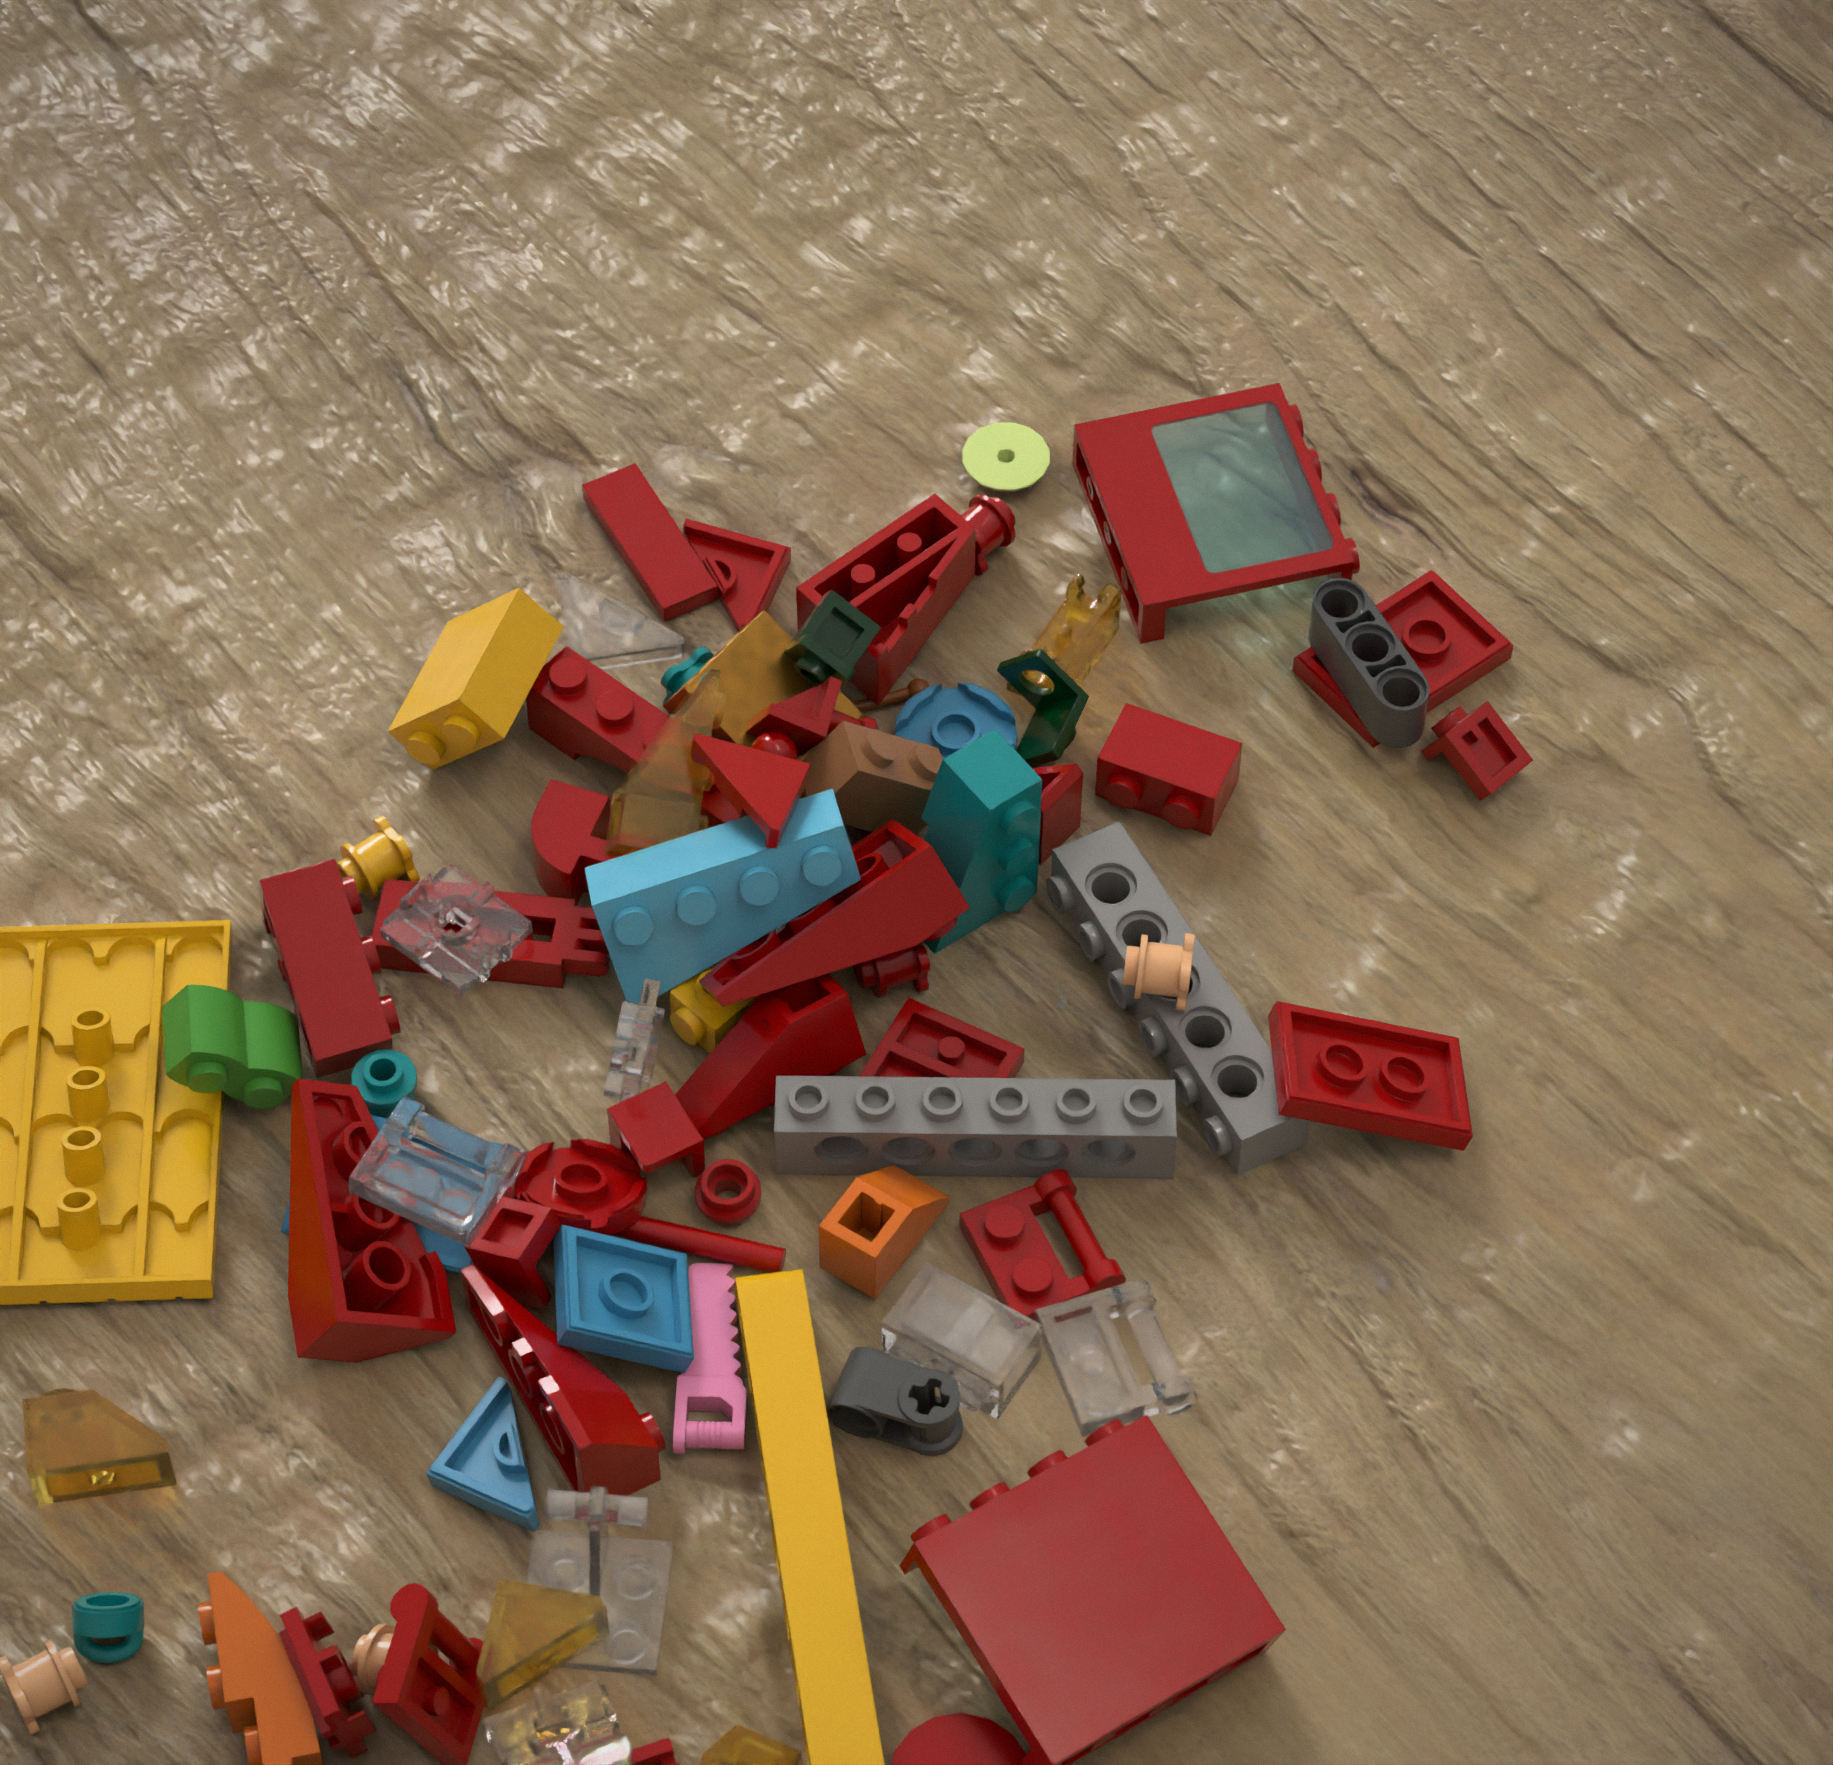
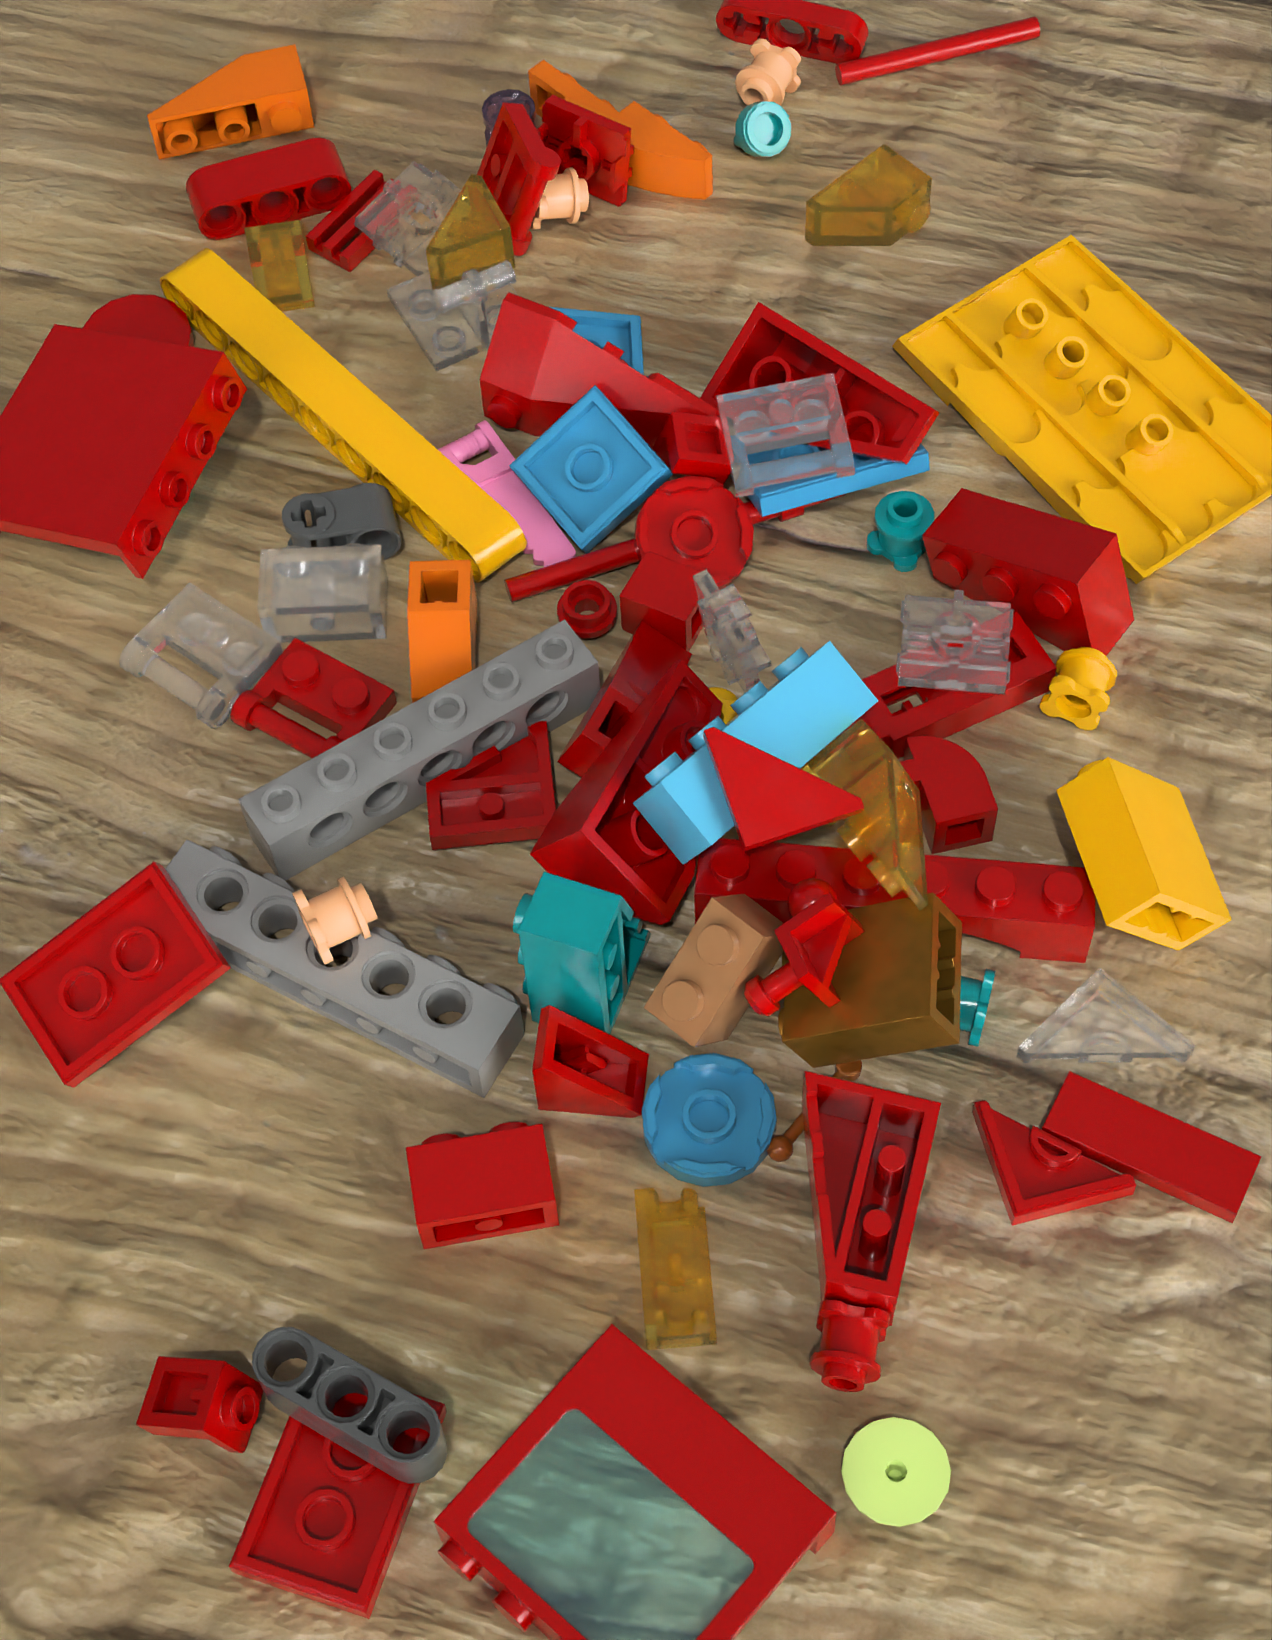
camera: 150 degrees right, 5 degrees up
(231, 1046) = (1035, 456): bright green brick -> none
(831, 640) = (847, 1028): dark green bracket -> none
(1056, 707) = (625, 1165): dark green bracket -> none

